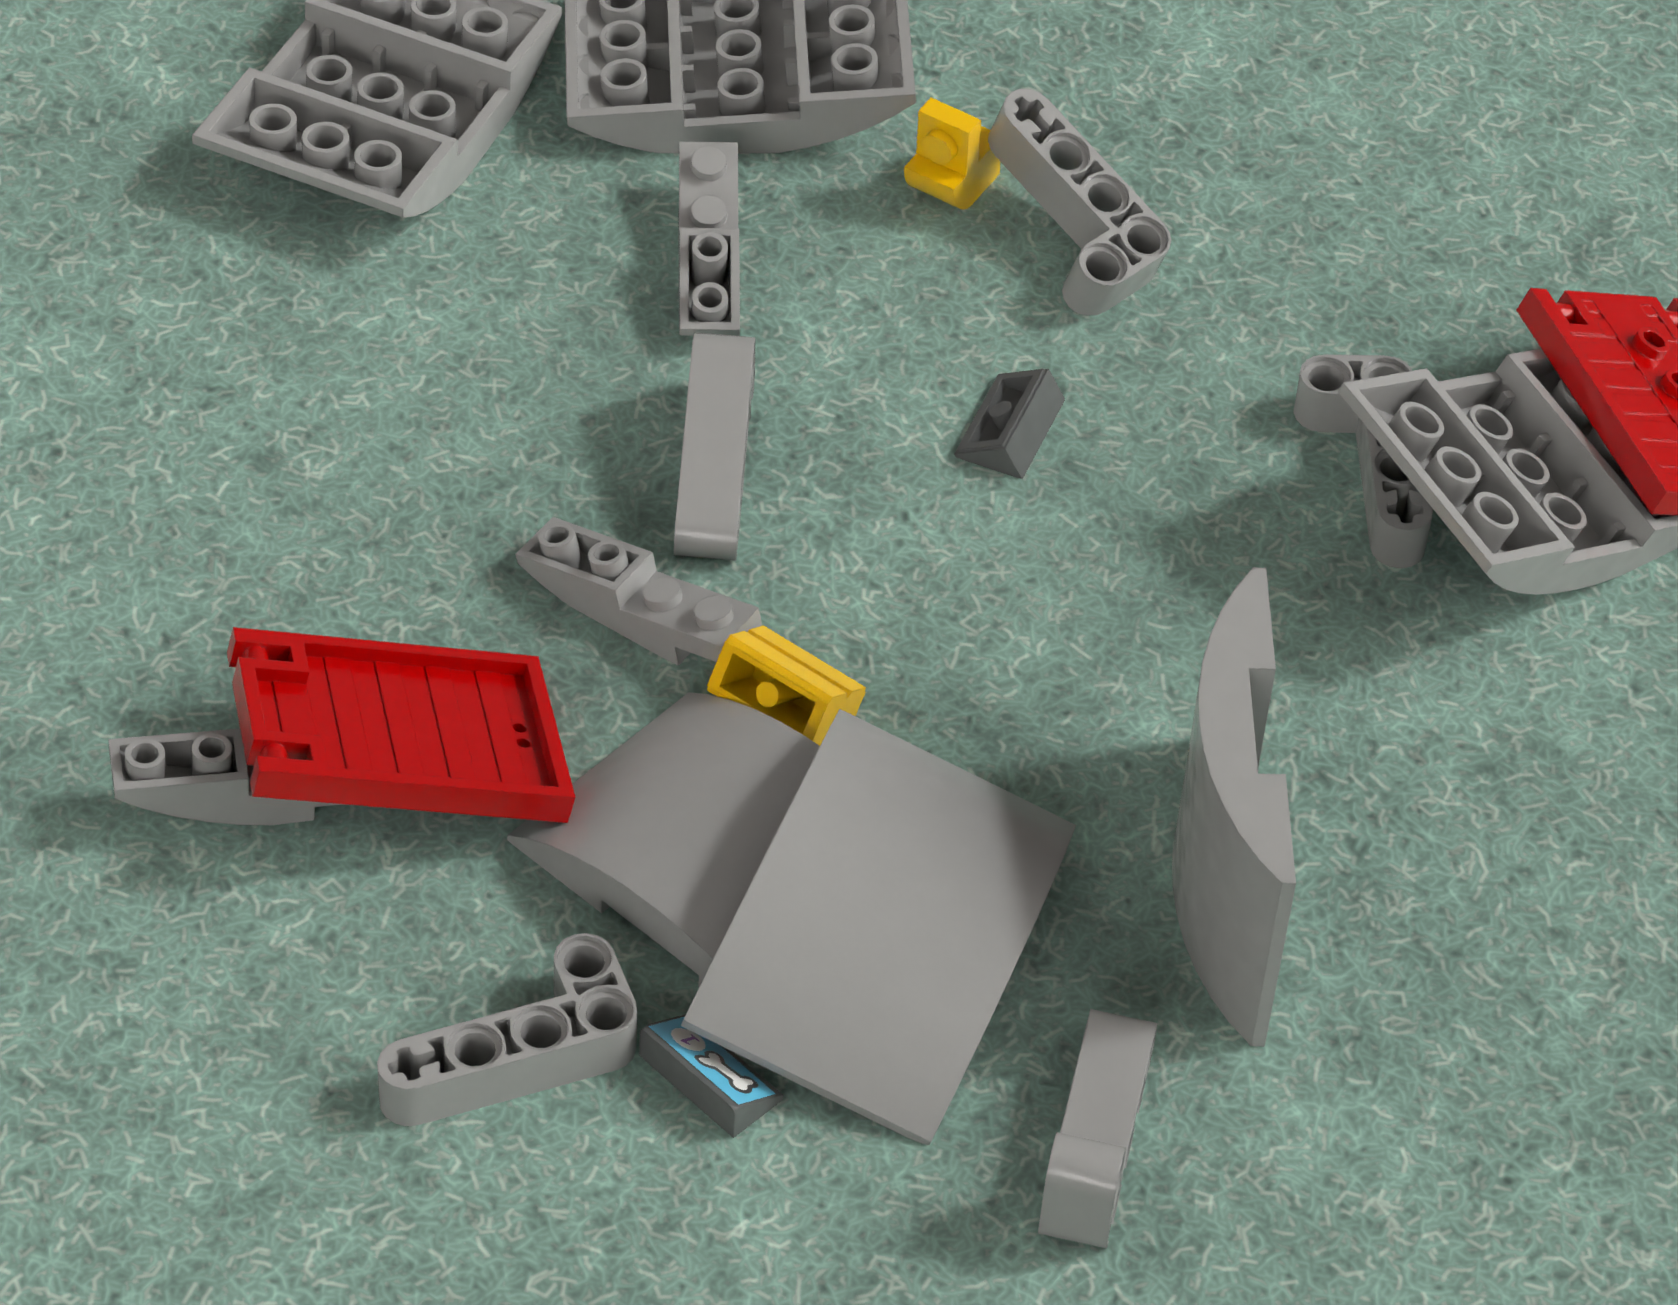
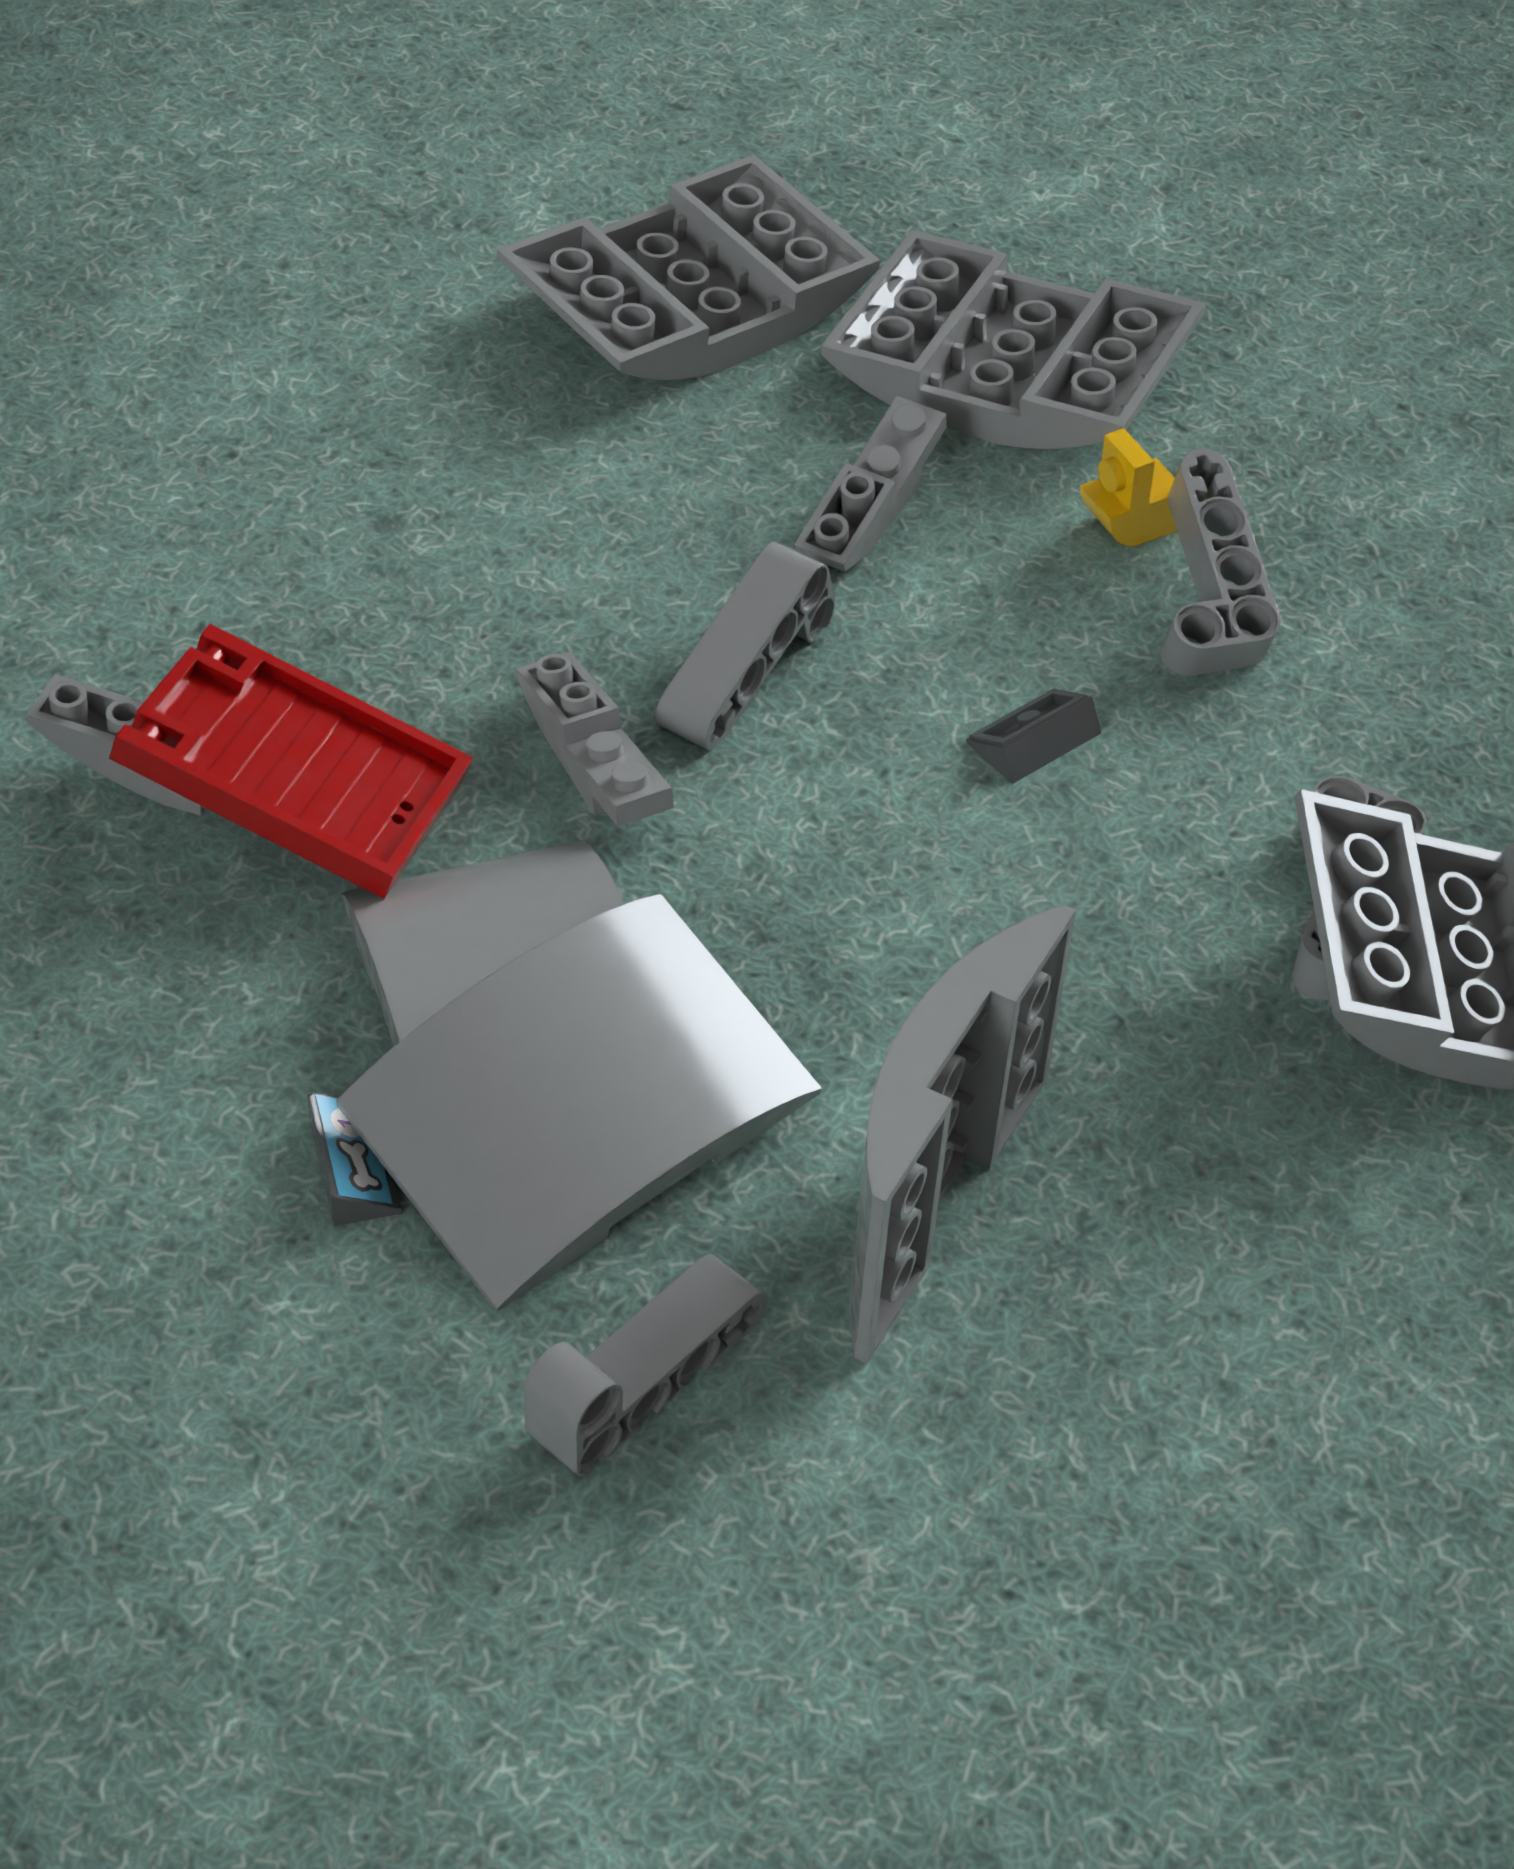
camera: 30 degrees right, 0 degrees up
(582, 1033) = (203, 1066): light grey beam -> none
(783, 682) = (654, 855): yellow brick -> none

